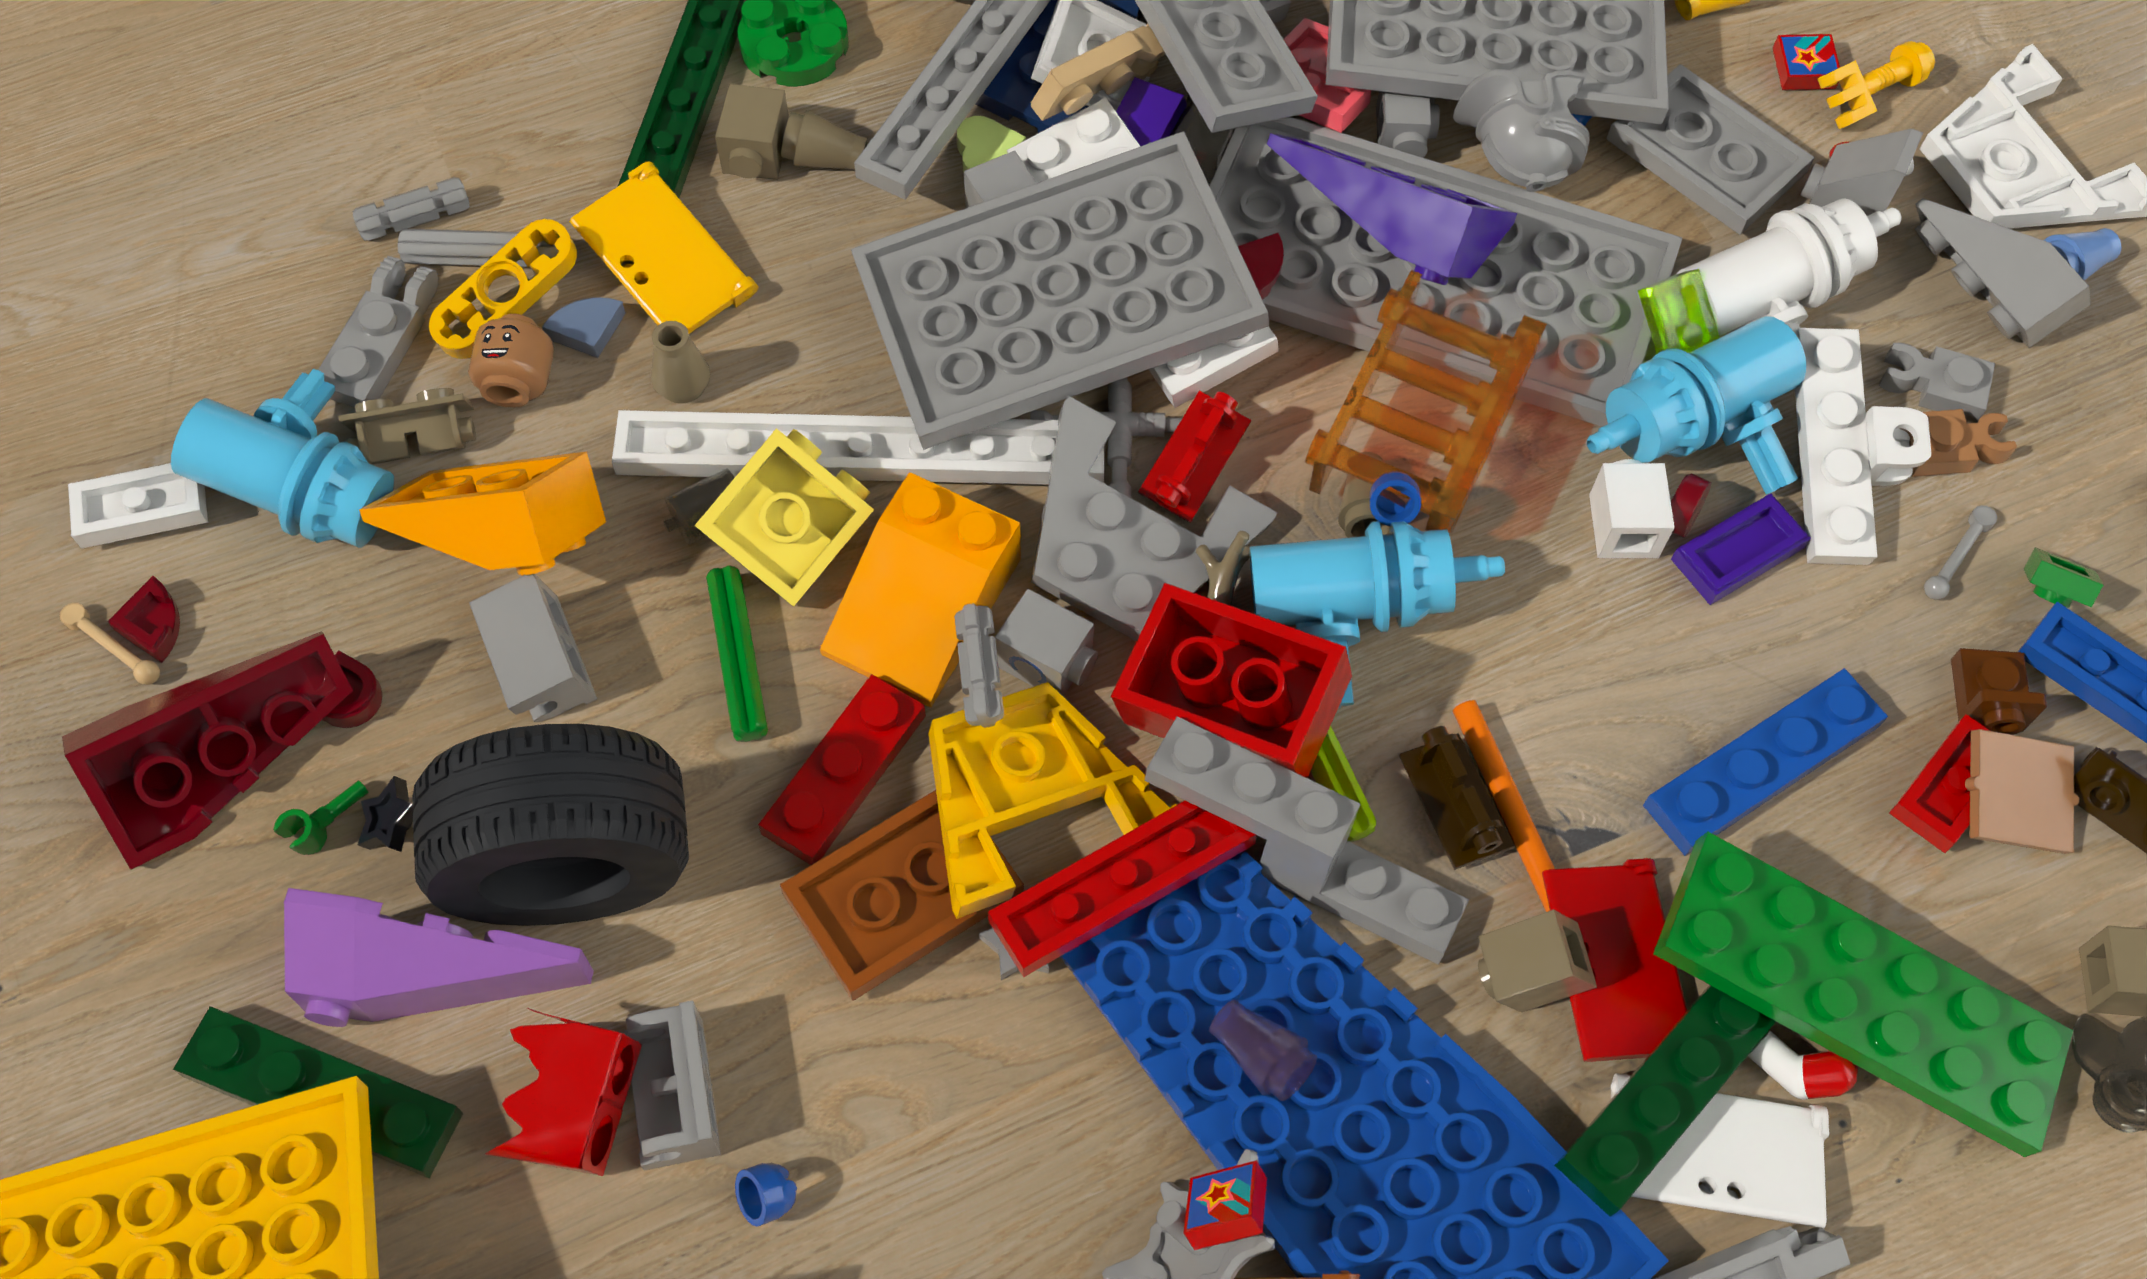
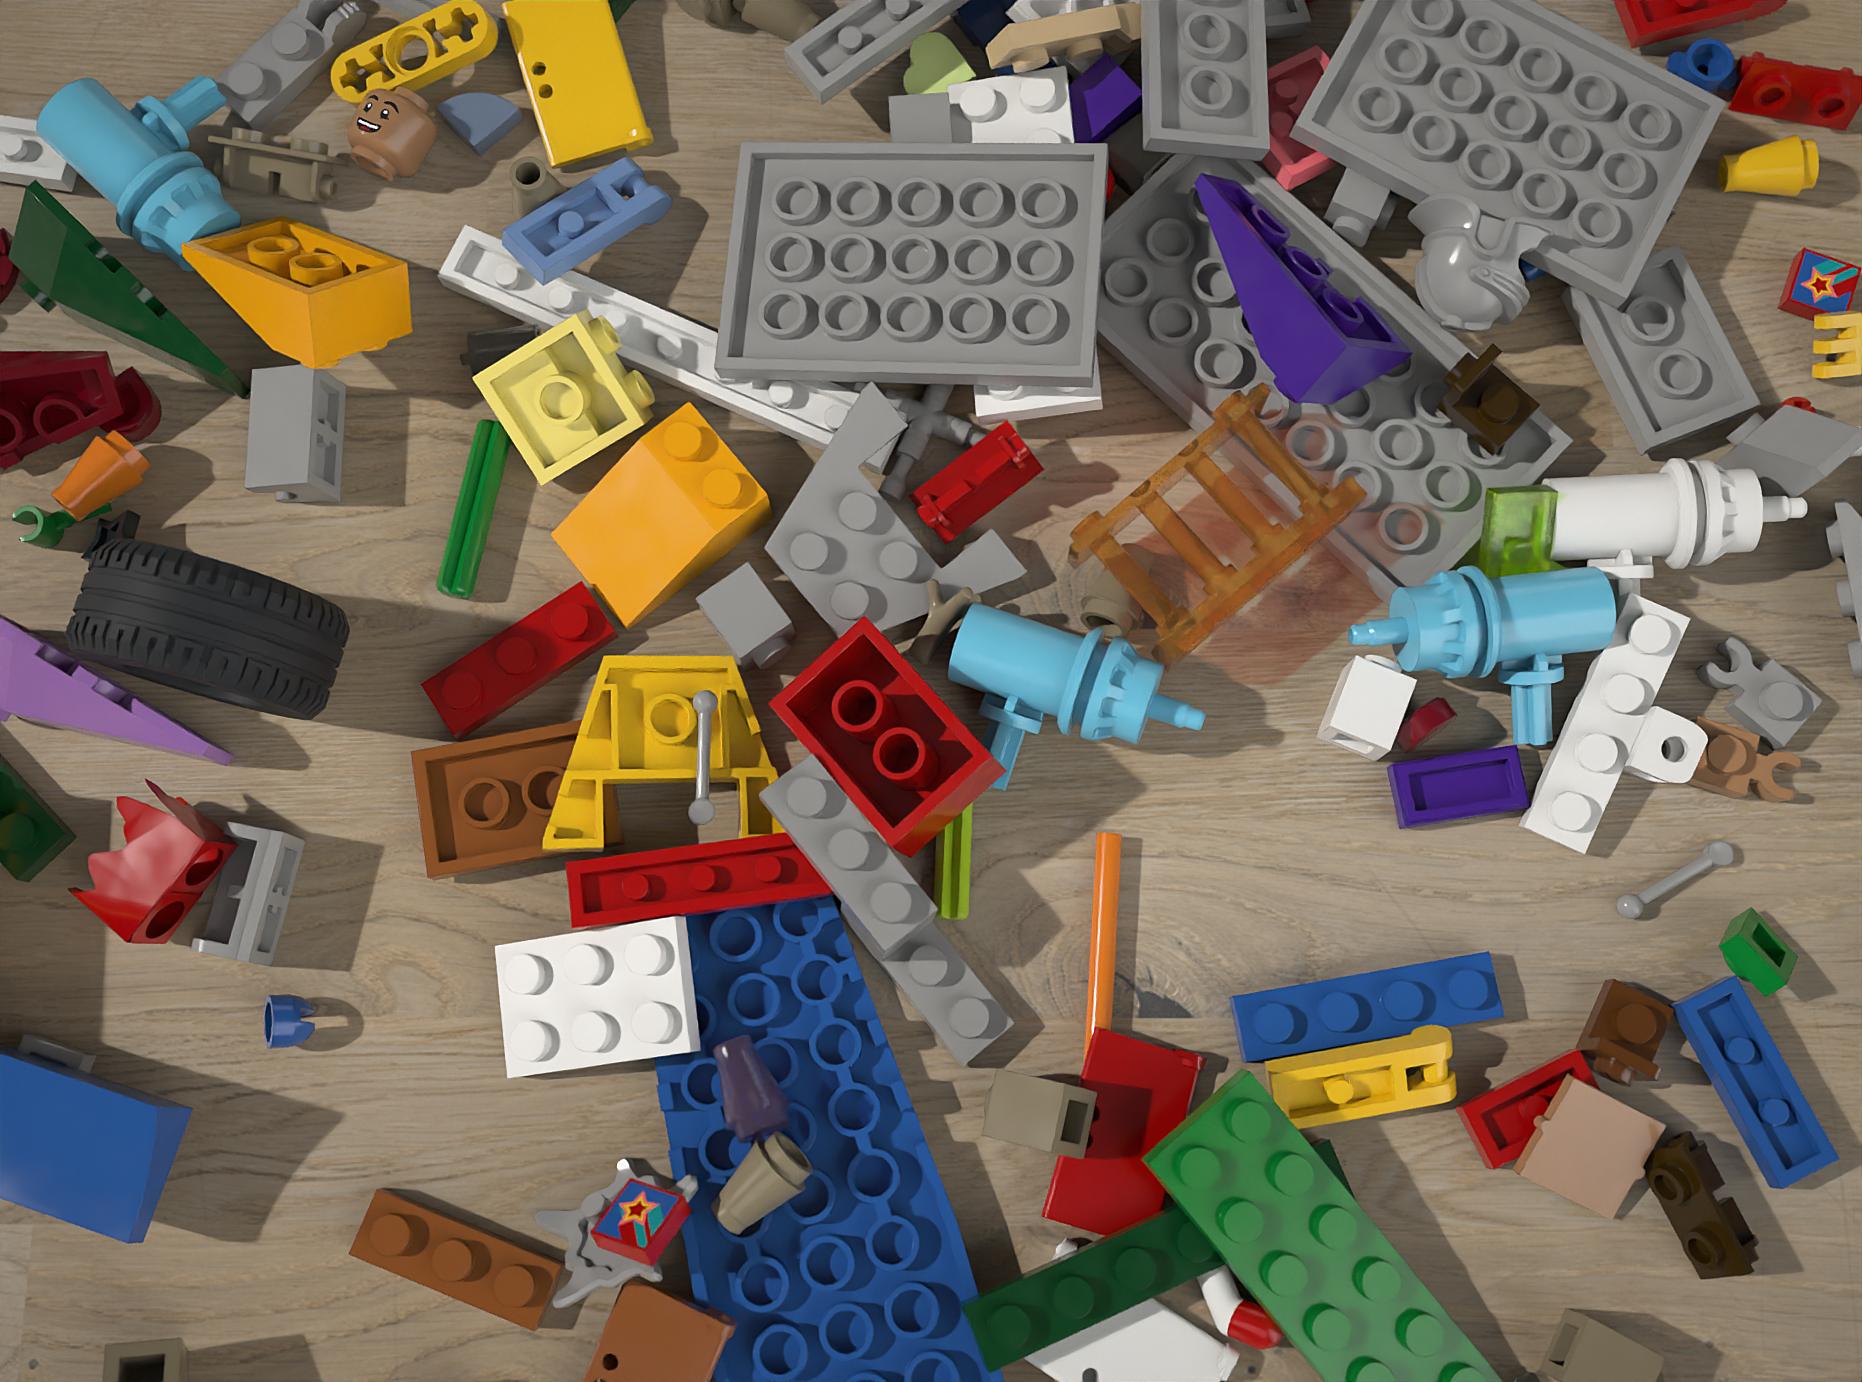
camera: 25 degrees right, 15 degrees up
(273, 590) = (92, 287): none -> dark green wedge
(352, 755) = (101, 475): none -> orange cone
(732, 366) = (585, 220): none -> medium blue plate
(979, 665) = (667, 621): light grey axle -> none
(1069, 1035) = (597, 997): none -> white plate
(1089, 821) = (703, 810): none -> light grey hinge
(1264, 261) = (1125, 309): dark red tile -> none
(1317, 1128) = (762, 1182): none -> dark tan cone
(1389, 507) = (1128, 614): blue hinge -> none
(1455, 798) = (1053, 922): dark brown hinge -> none
(1596, 229) = (1485, 400): none -> dark brown bracket
(1807, 810) = (1364, 1078): none -> yellow plate

